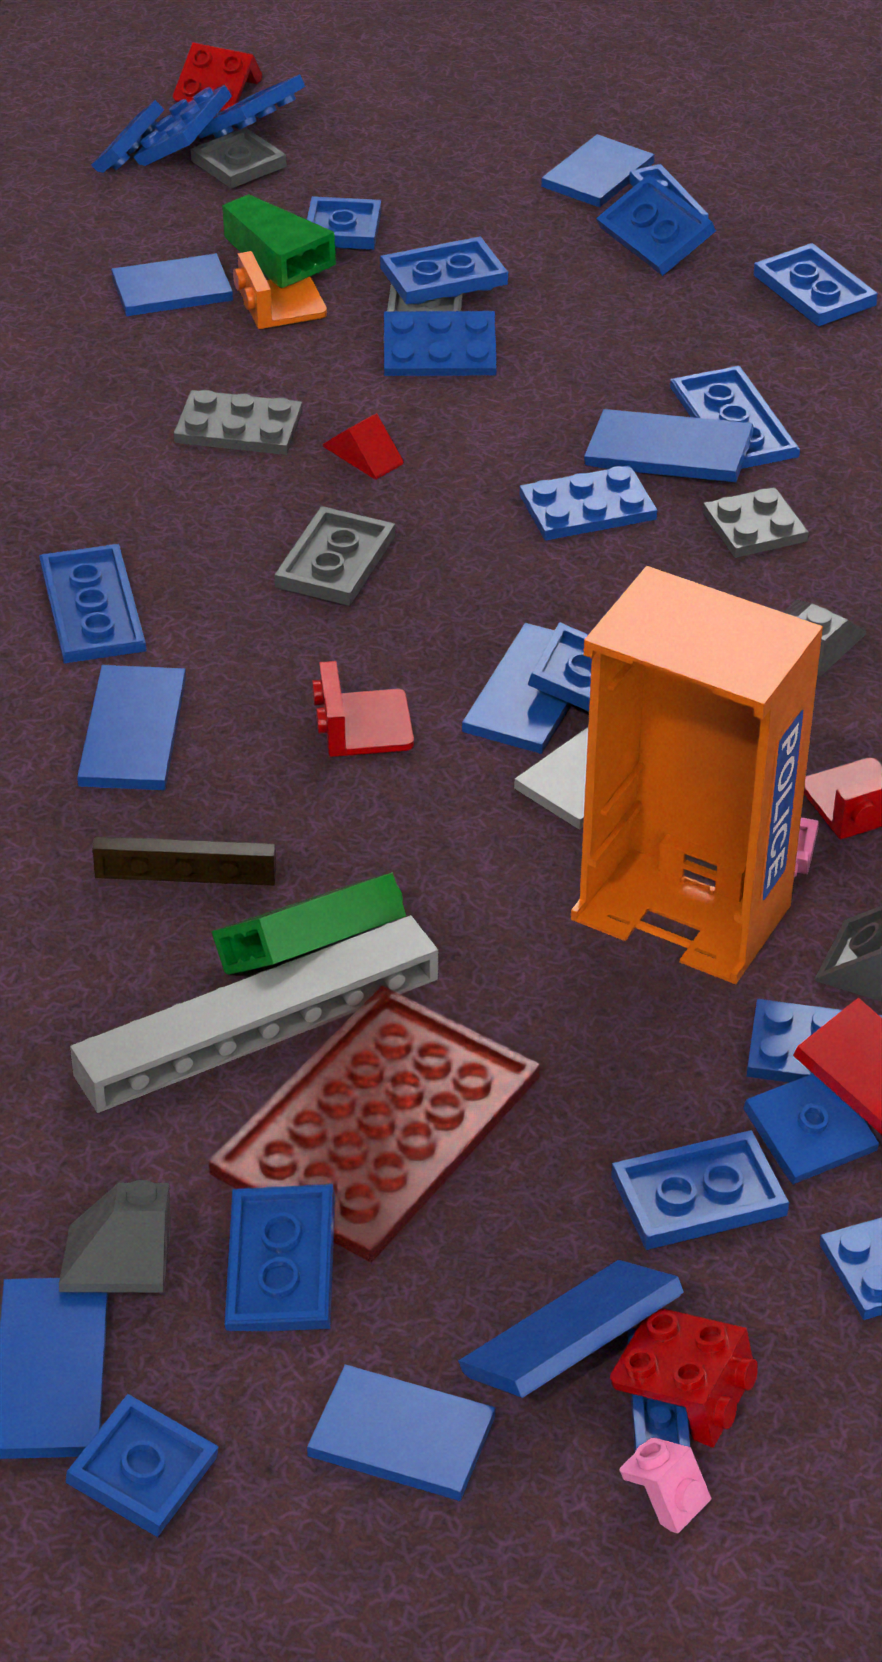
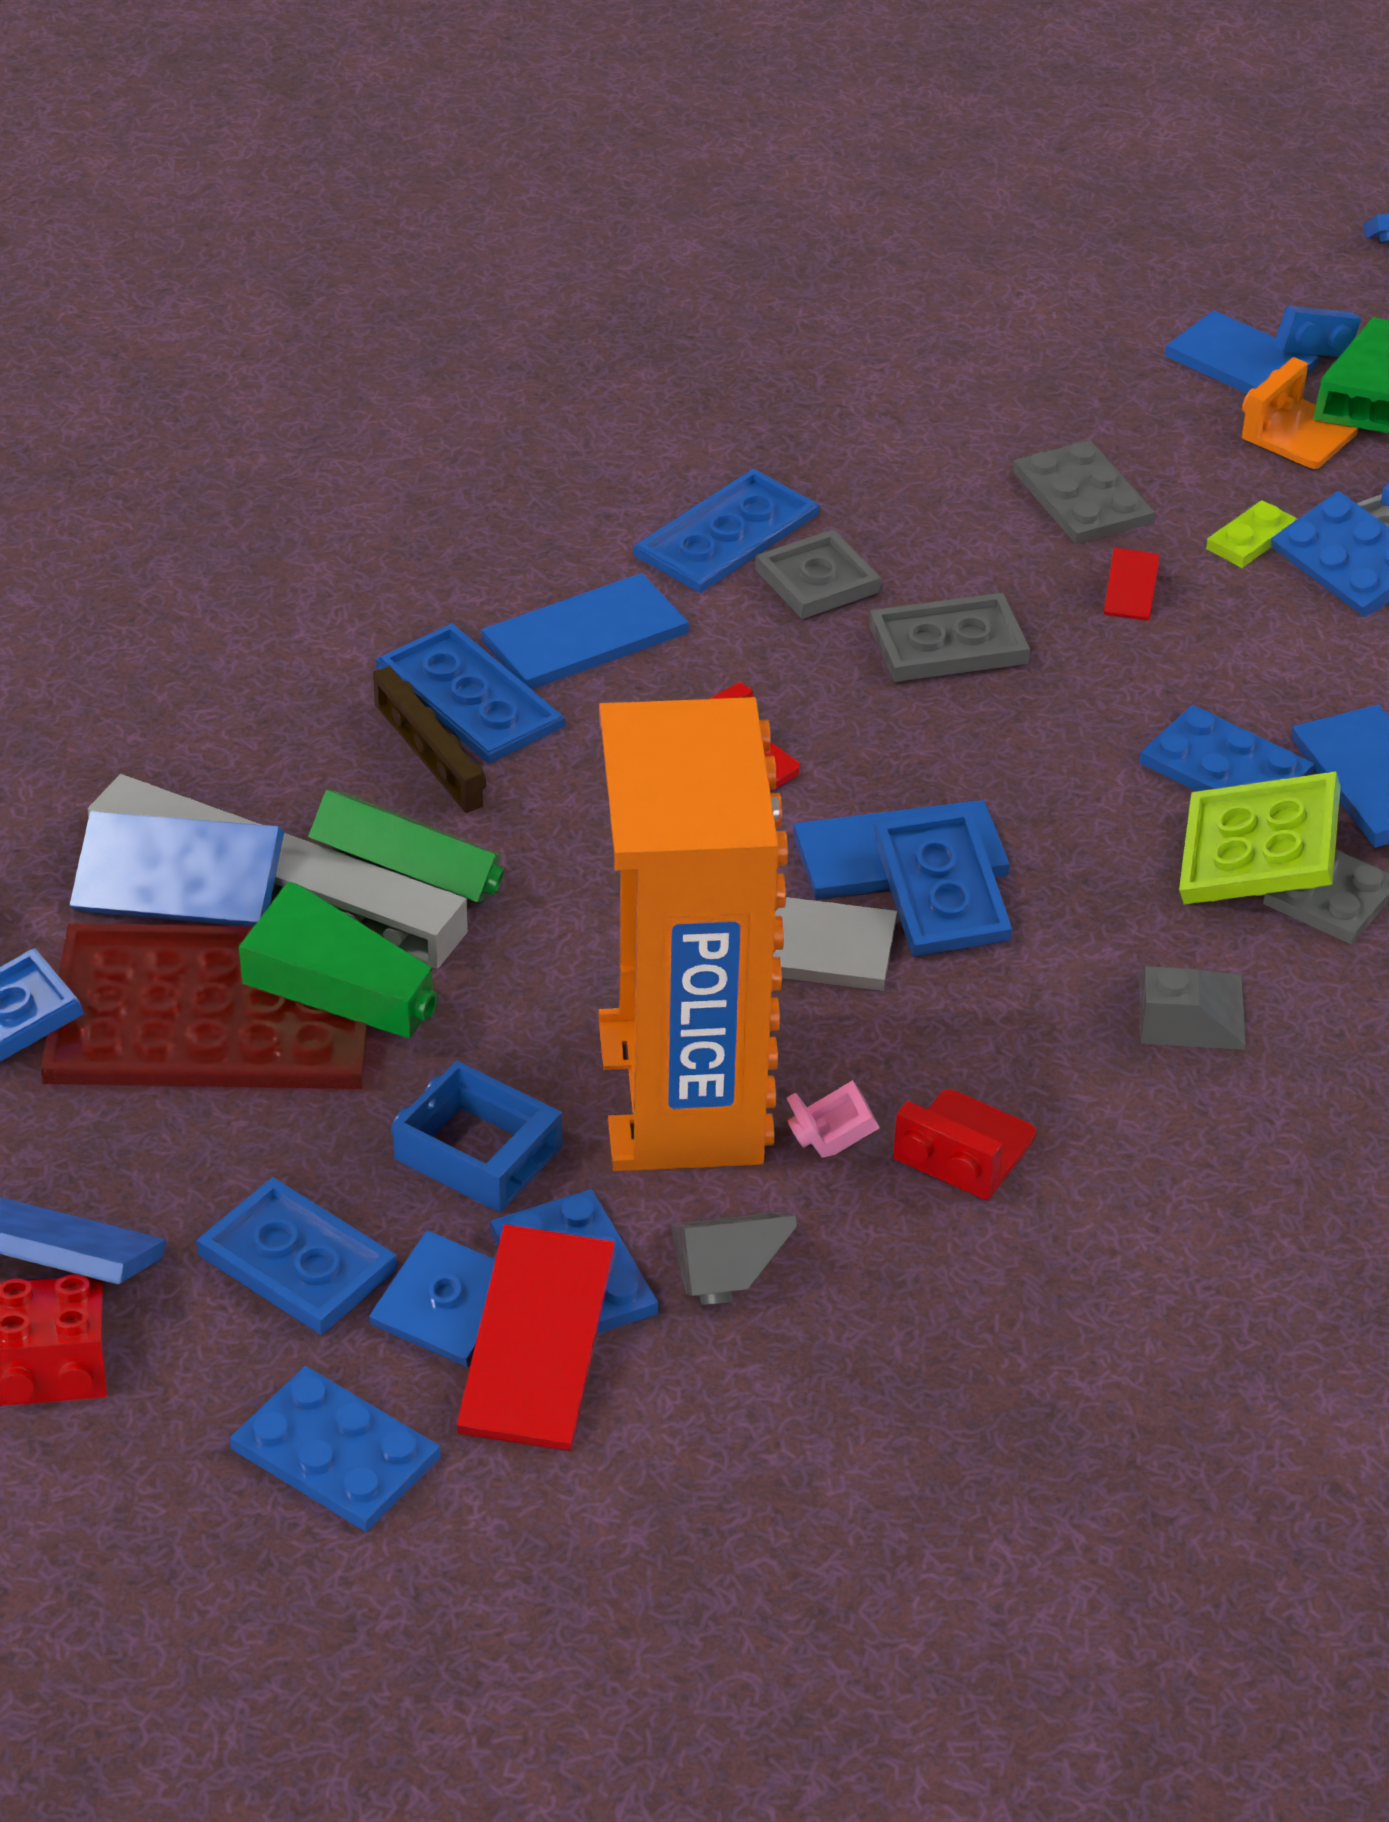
camera: 55 degrees right, 0 degrees up
(137, 811) = (473, 693): none -> blue tile
(198, 581) = (818, 574): none -> dark grey plate
(203, 235) = (1316, 331): none -> blue plate
(217, 1063) = (177, 868): none -> tile
(365, 375) = (1249, 534): none -> lime plate
(423, 1016) = (336, 964): none -> green slope
(647, 1001) = (495, 1184): none -> blue window
(696, 518) = (1260, 838): none -> lime plate

